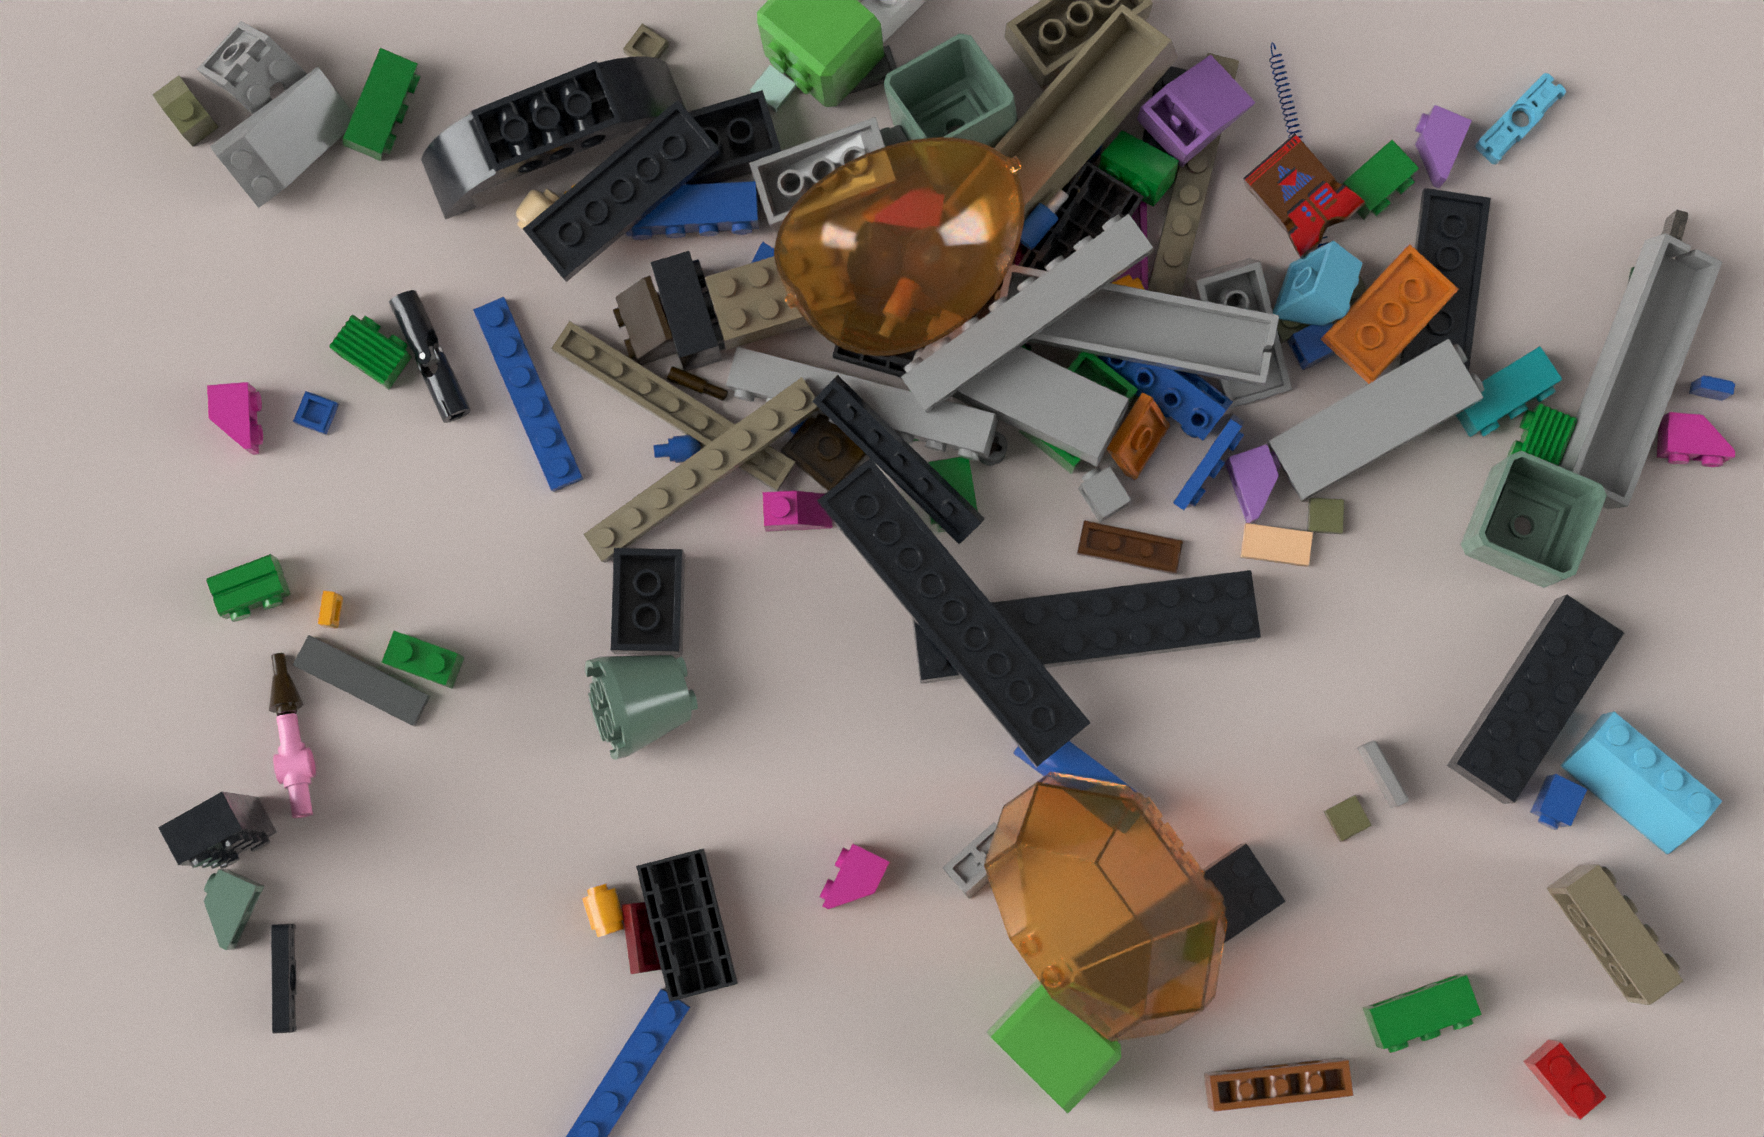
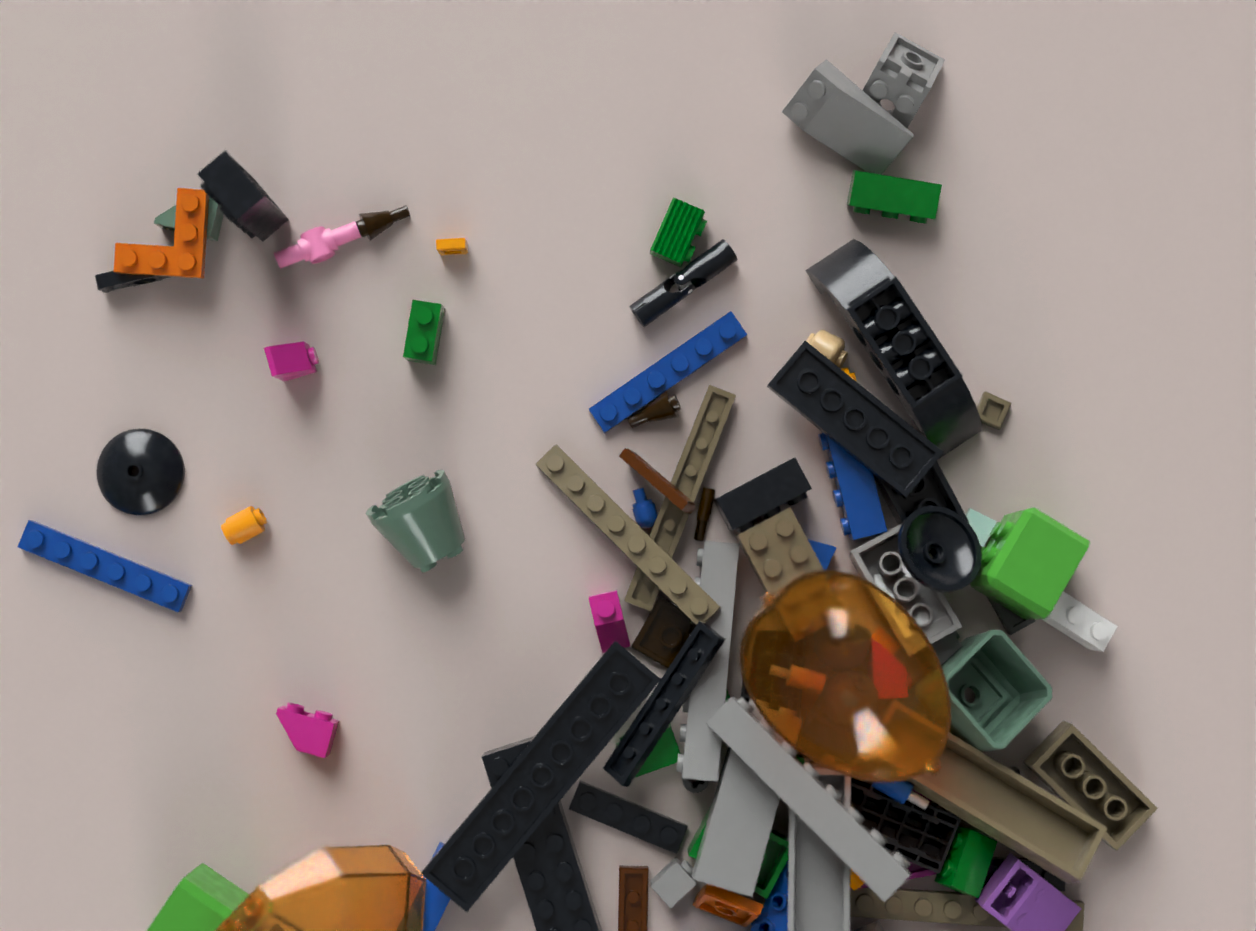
camera: 80 degrees right, 5 degrees up
(185, 111) = (856, 30): olive slope -> none
(235, 411) = (602, 131): dark pink slope -> none
(248, 588) = (458, 174): green brick -> none
(276, 925) = (189, 249): none -> orange plate
(315, 413) = (617, 197): blue tile -> none
(361, 680) = (399, 284): dark grey tile -> none
(422, 817) = (291, 360): none -> dark pink slope
(541, 1023) = (158, 477): none -> black dish
(568, 408) = (661, 409): none -> dark brown cone
(639, 939) = (228, 562): dark red plate -> none
(645, 323) = (746, 460): dark brown slope -> none
(647, 423) = (658, 481): none -> reddish brown tile
(648, 601) = (506, 511): black brick -> none
(686, 925) = (244, 597): black piece -> none
(783, 123) = (948, 540): none -> black dish
(968, 866) = (338, 829): light grey hinge -> none
(1023, 533) = (628, 817): none -> black plate

